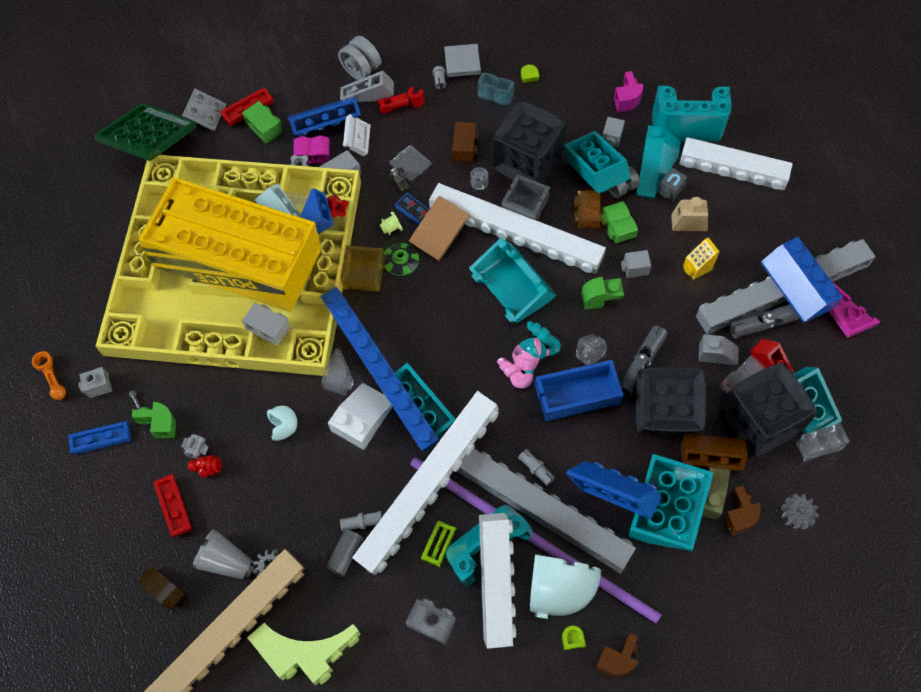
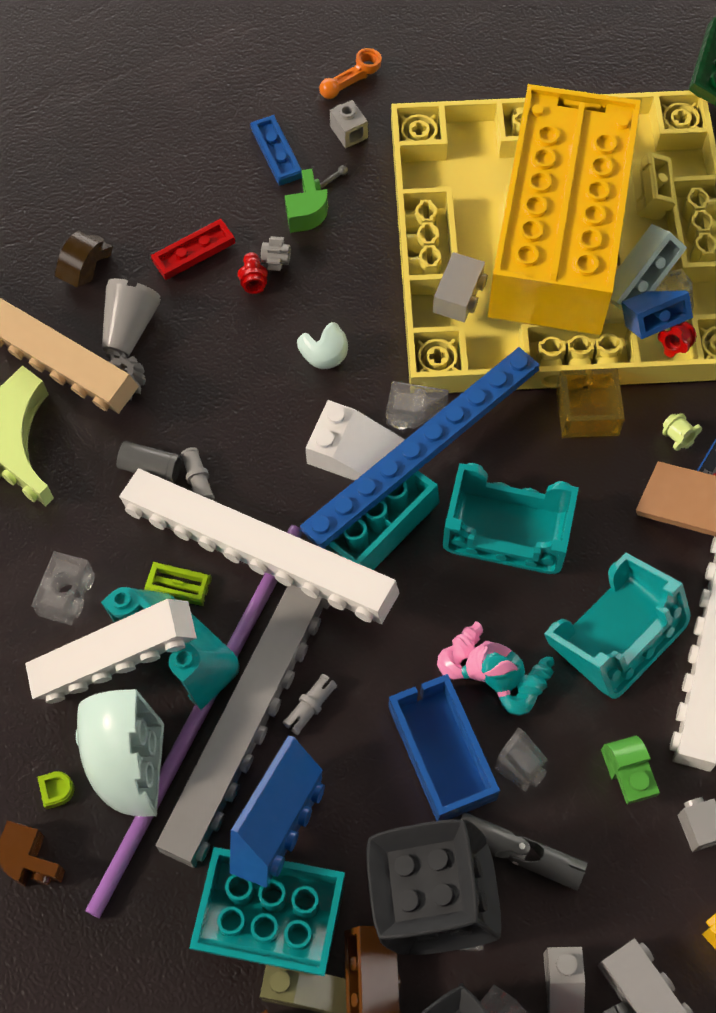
camera: 80 degrees right, 0 degrees up
(403, 265) = (624, 469): dish -> none
(436, 326) = (509, 522): none -> teal windscreen

